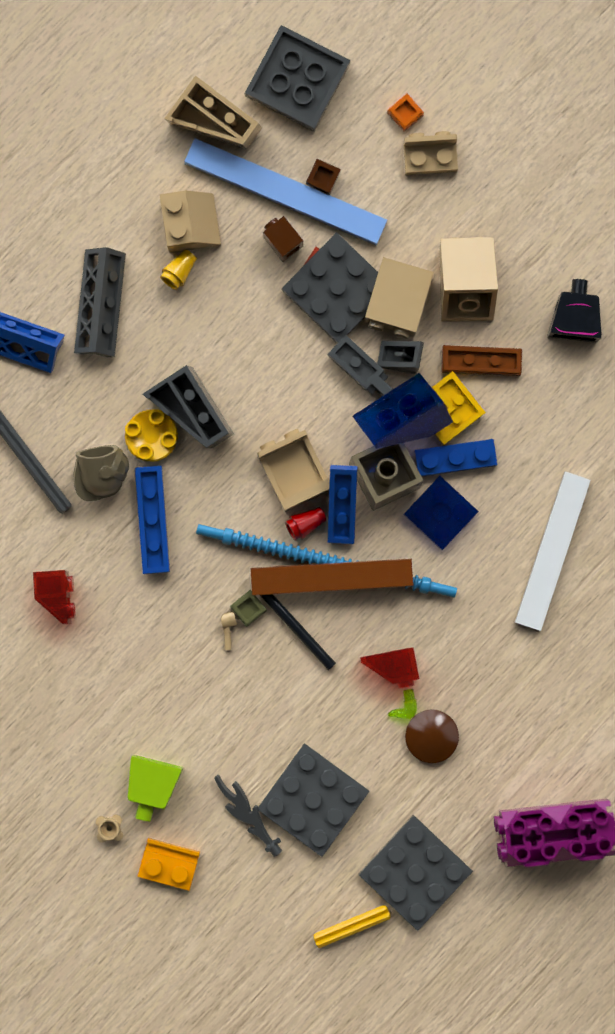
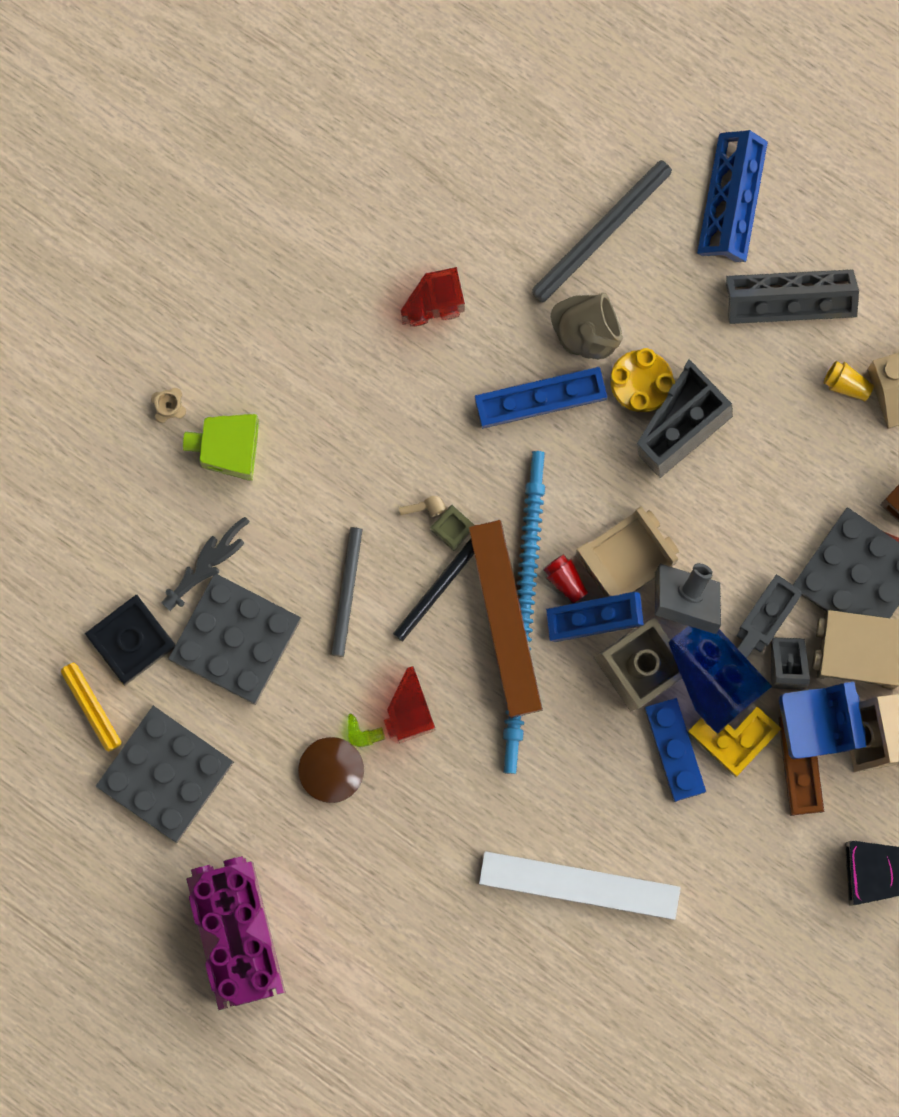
camera: 85 degrees right, 5 degrees down
(168, 864) = (136, 480): light orange plate -> none
(288, 702) = (347, 591): none -> dark grey bar
(301, 886) = (130, 640): none -> black tile
(338, 427) = (688, 597): none -> dark grey tile
(440, 513) = (604, 741): clear blue plate -> none
(452, 337) = (822, 721): none -> blue bracket

